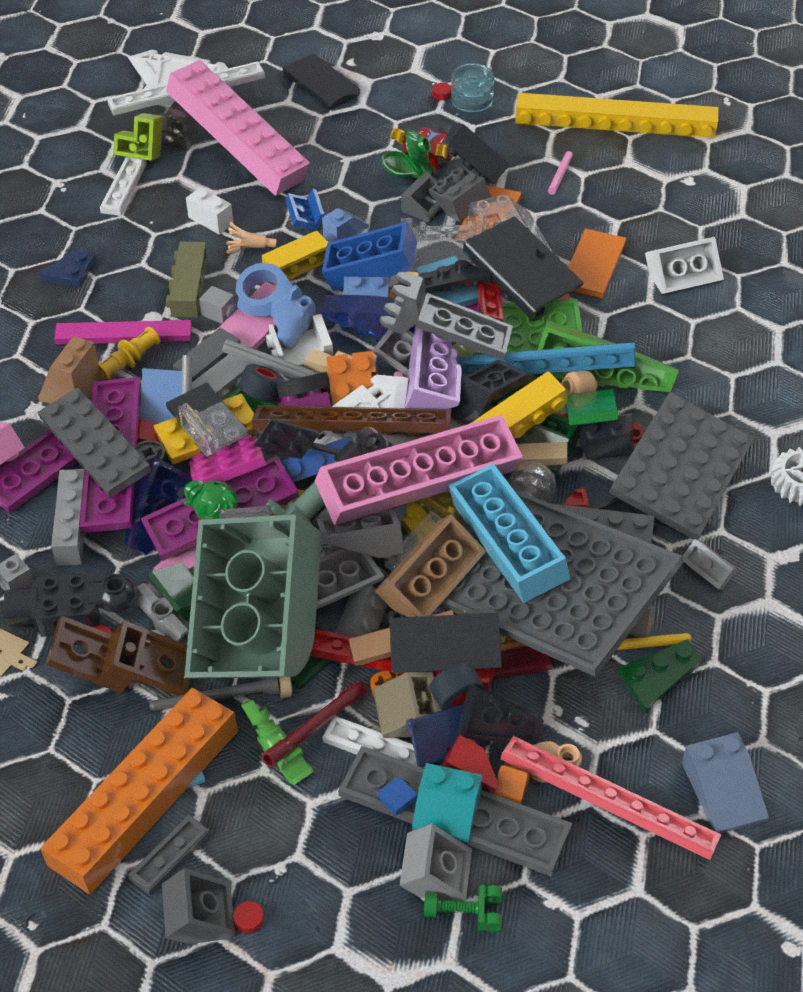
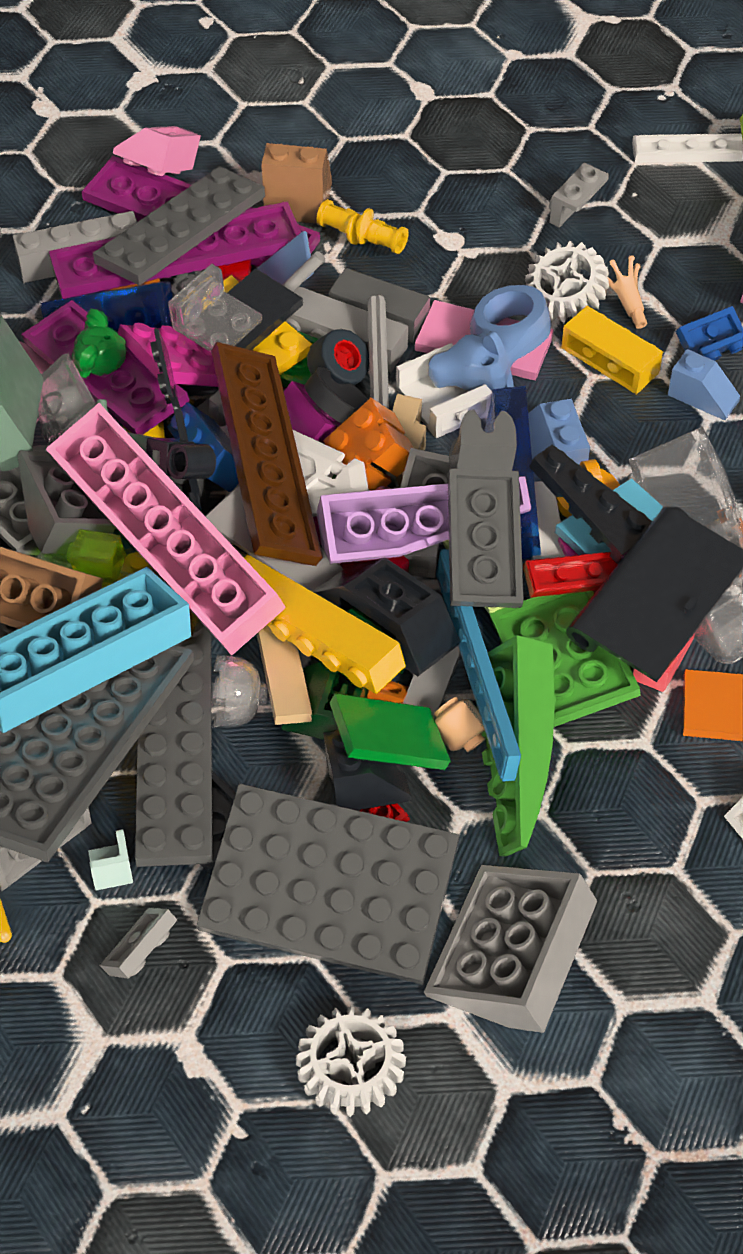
camera: 75 degrees right, 5 degrees up
(70, 269) = (510, 142): dark blue wing -> none
(115, 331) = (409, 213): dark pink tile -> none
(149, 241) = (575, 193): none -> light grey bracket
(187, 279) = (511, 251): olive brick -> none
(209, 210) = (667, 238): white brick -> none
(217, 304) = (482, 282): light grey brick -> none
(233, 252) = (562, 272): none -> white gear
(370, 254) = (618, 415): blue brick -> none
(417, 520) = (97, 554): none -> clear neon green brick
(578, 499) = (235, 763): red tile -> none
(739, 391) = (513, 945): none -> light grey slope

